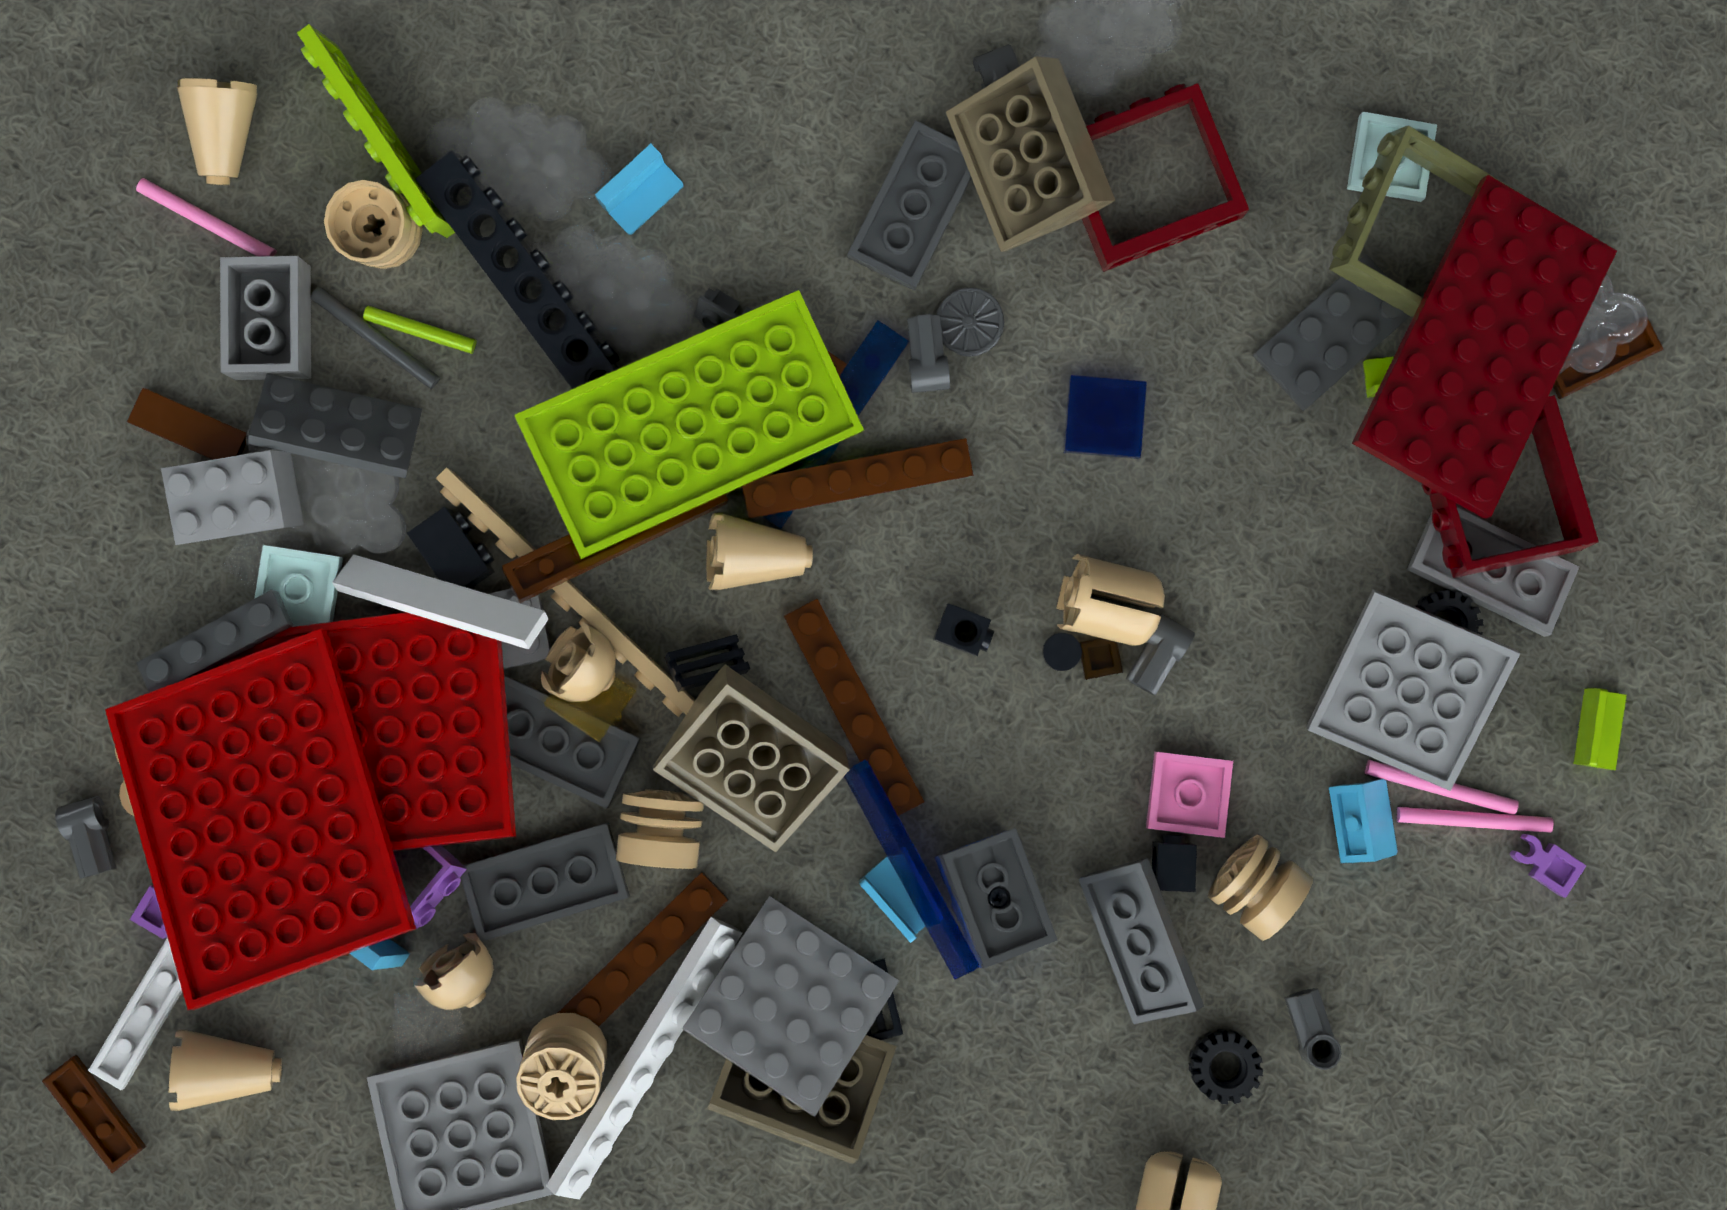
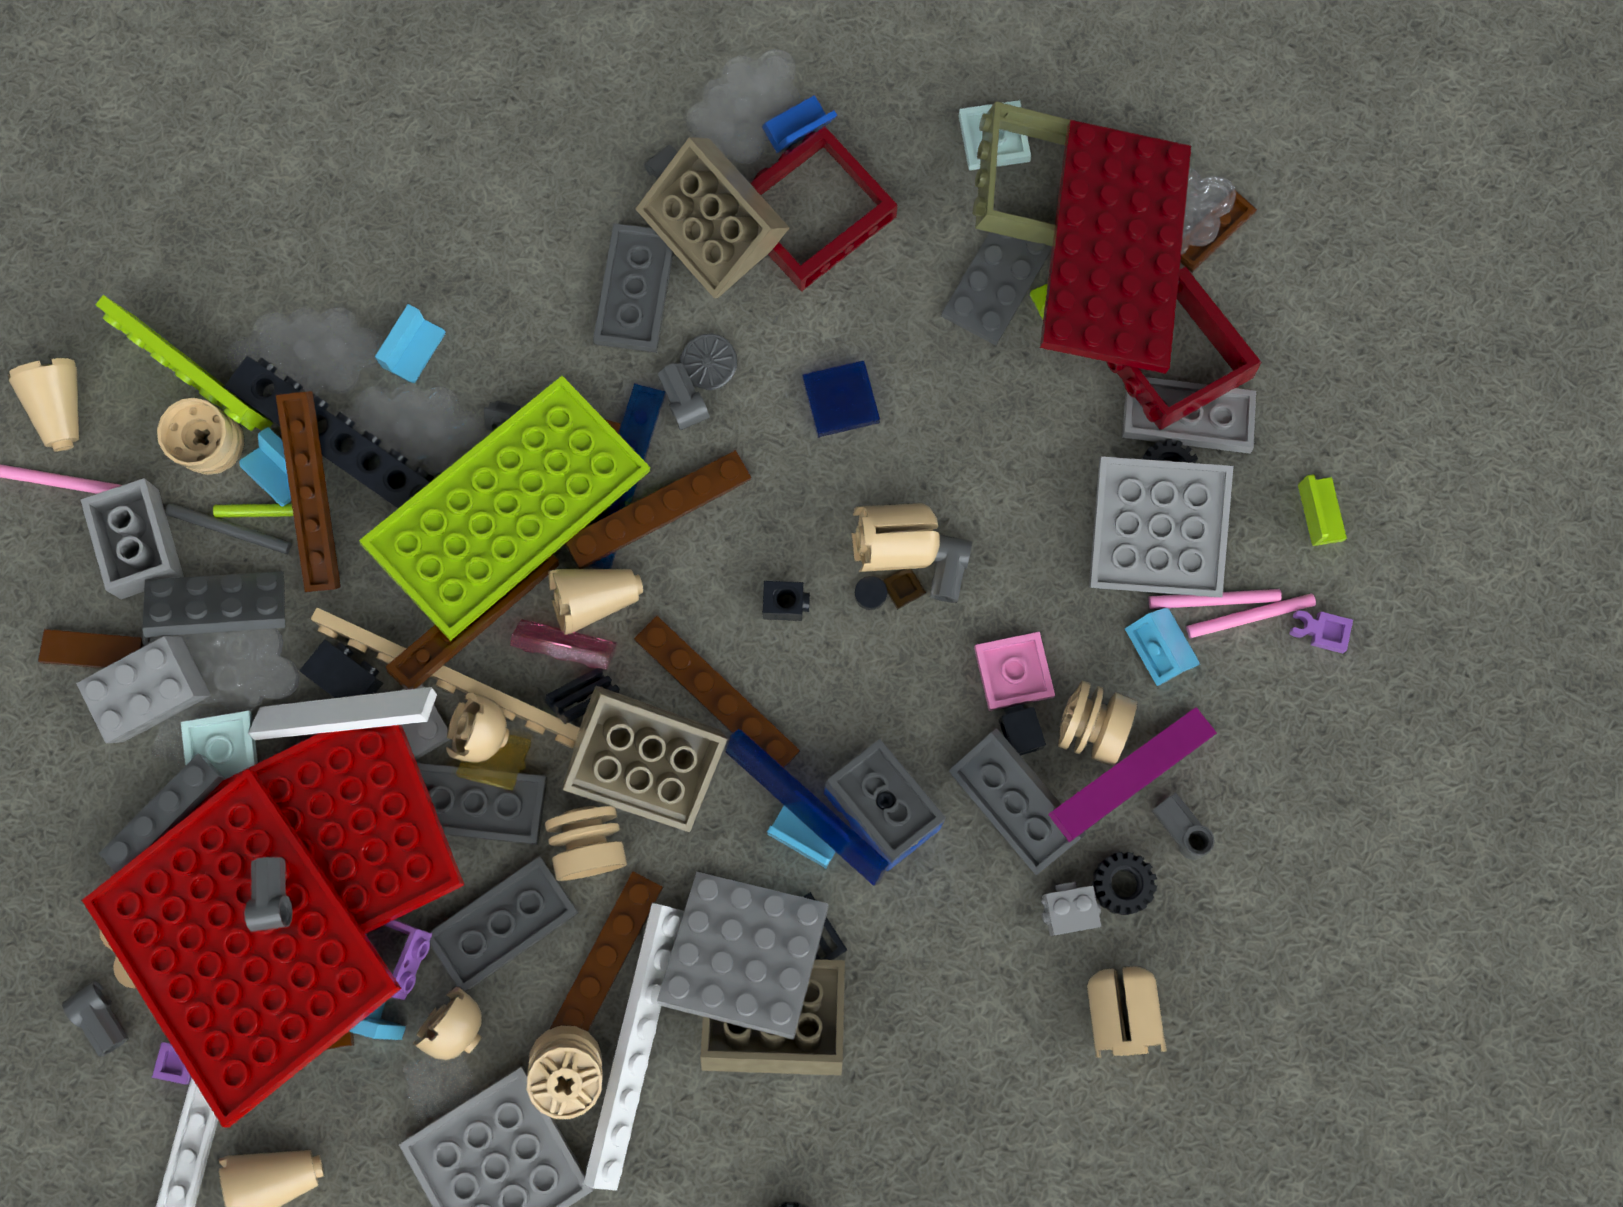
camera: 15 degrees left, 10 degrees down
(301, 791) = (269, 903): none -> dark grey piece
(448, 288) = (268, 466): none -> medium azure panel
(475, 330) = (308, 491): none -> reddish brown plate
(692, 590) = (551, 641): none -> clear pink plate
(1157, 1075) = (1071, 909): none -> light grey head
(1167, 67) = (796, 123): none -> blue panel
(1278, 957) = (1132, 774): none -> magenta tile

